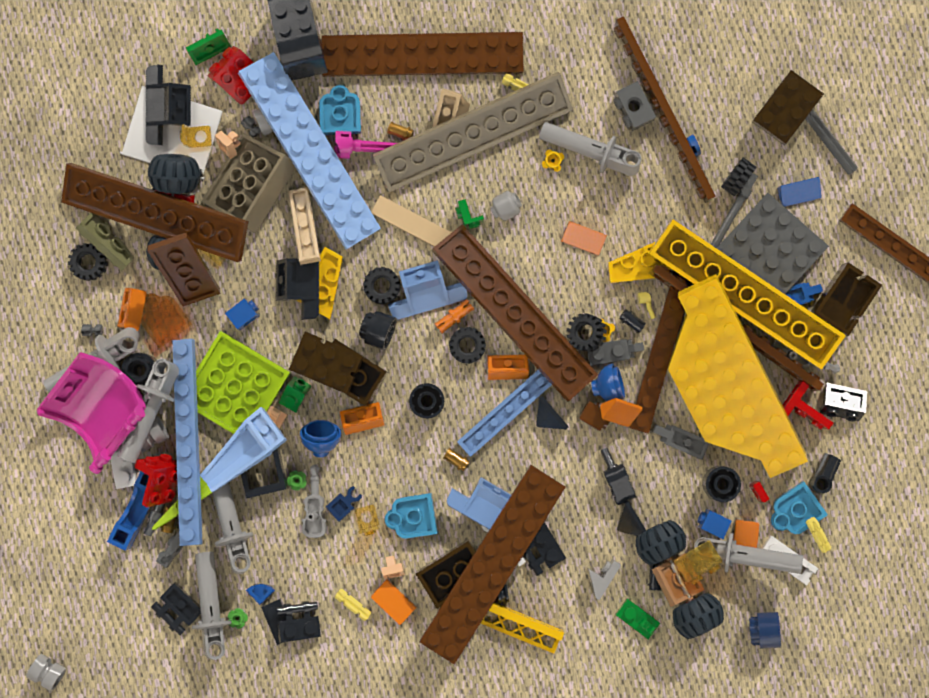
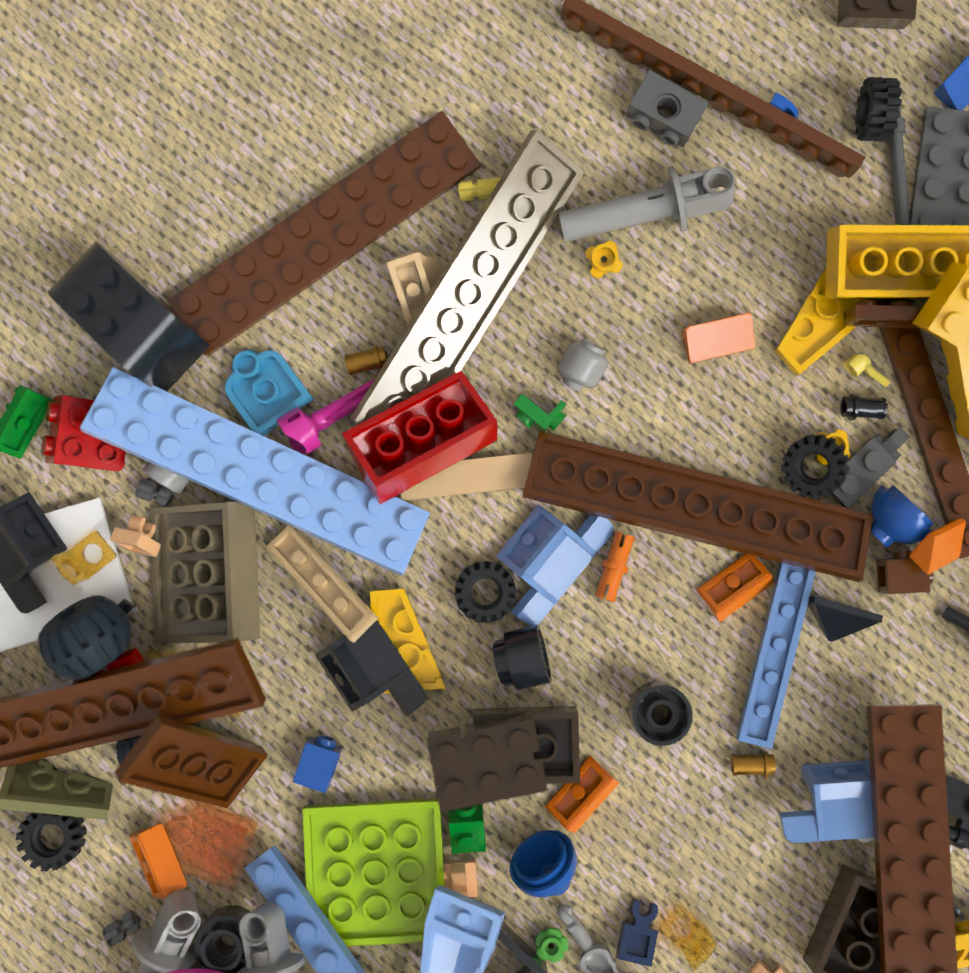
camera: 25 degrees left, 0 degrees up
(401, 187) = (421, 436): none -> red slope
(412, 516) = (747, 886): dark azure plate -> none
(472, 333) = (679, 603): black tyre -> none

